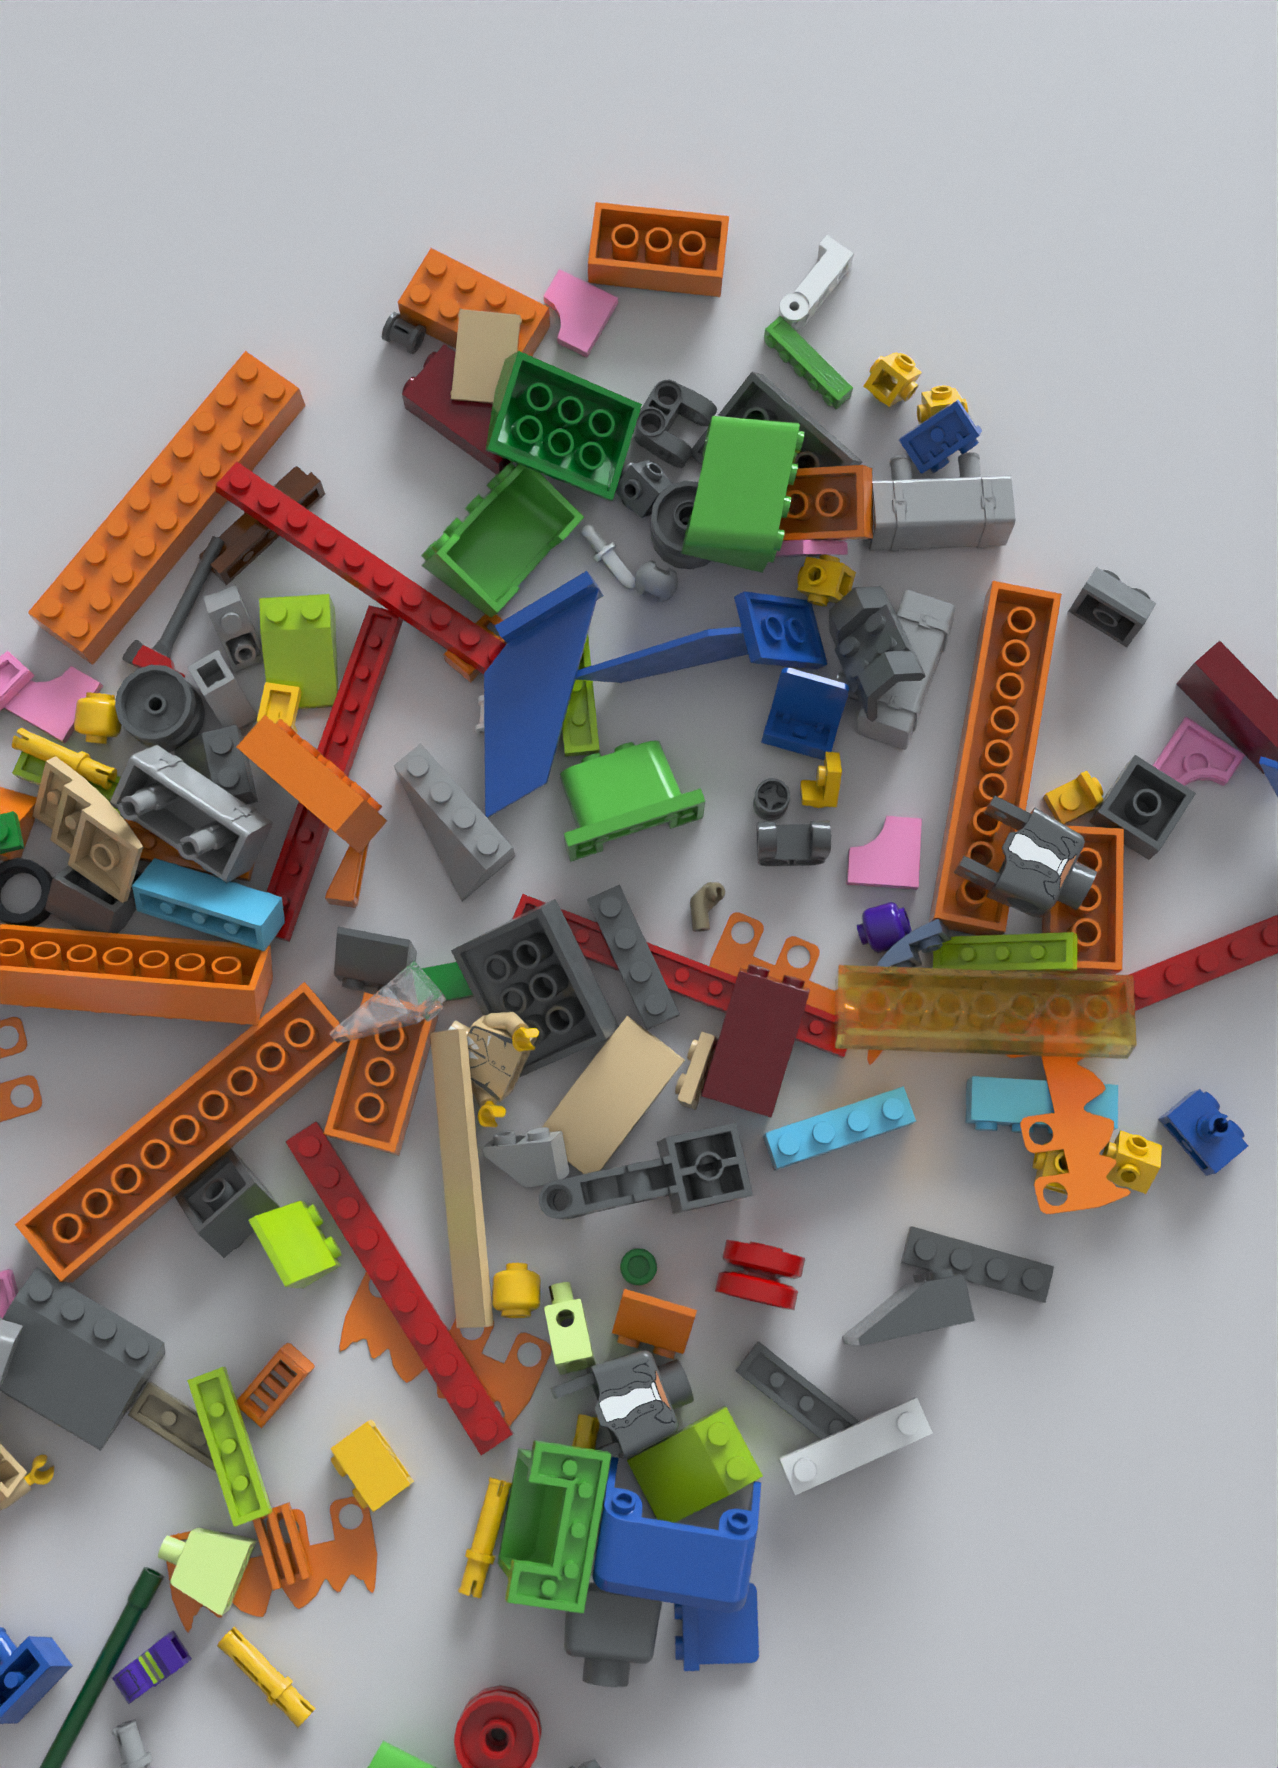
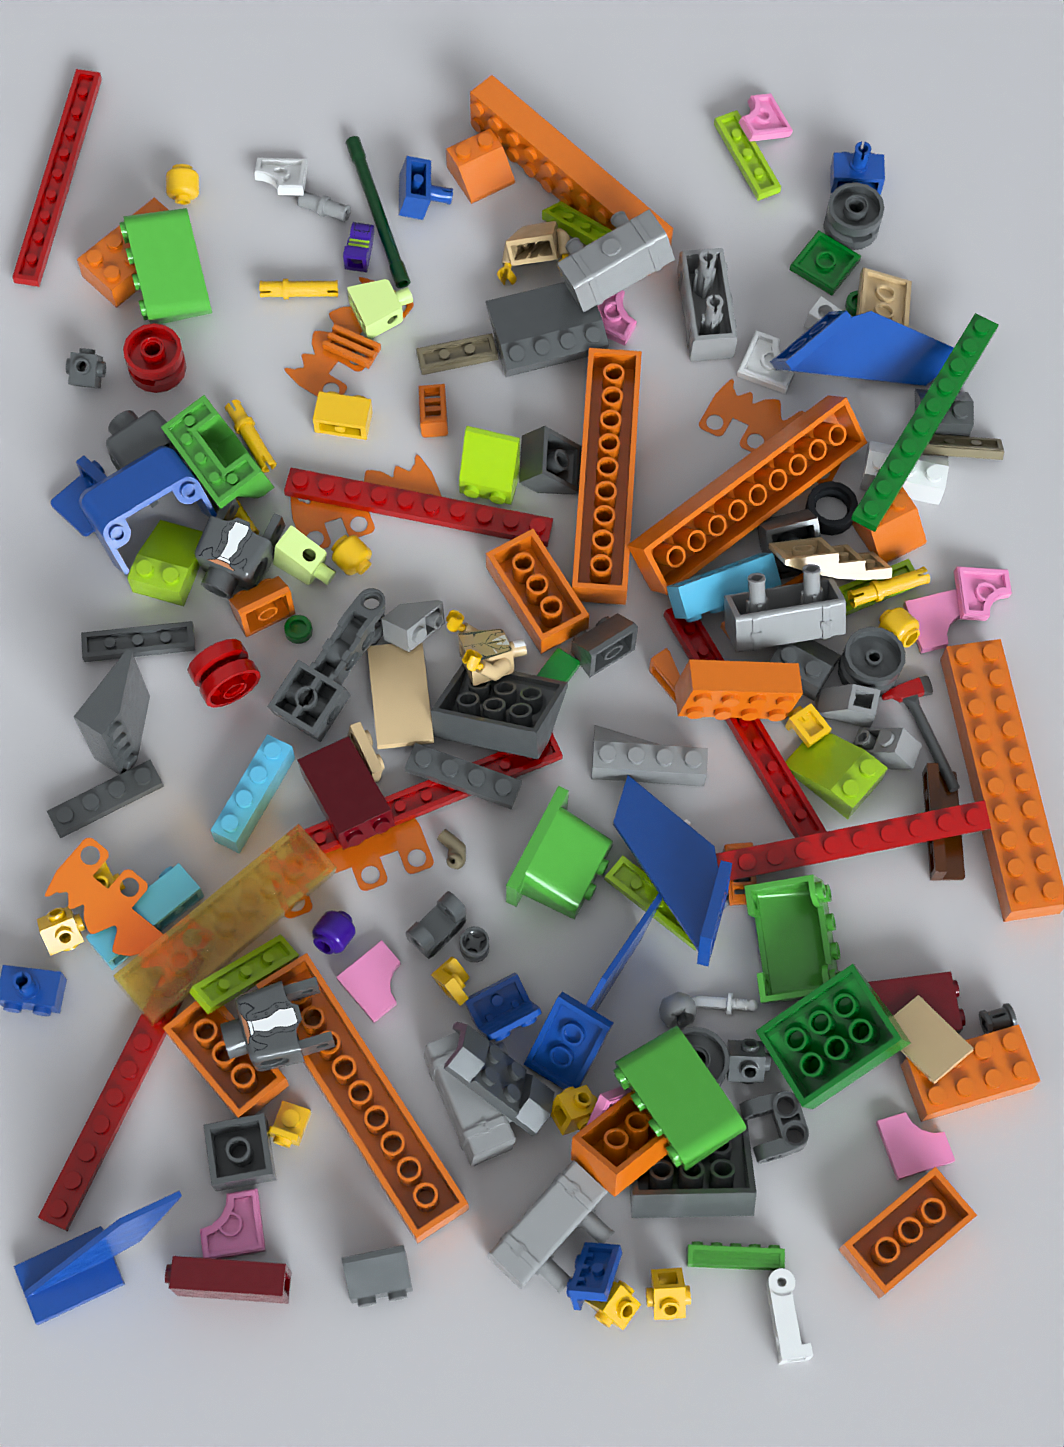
camera: 135 degrees right, 10 degrees down
(229, 1446) = (424, 359): lime plate -> none
(398, 1004) = (560, 618): clear slope -> none
(461, 1179) = (439, 579): tan tile -> none
(855, 1446) = (89, 640): white plate -> none
(924, 939) = (303, 930): sand blue slope -> none

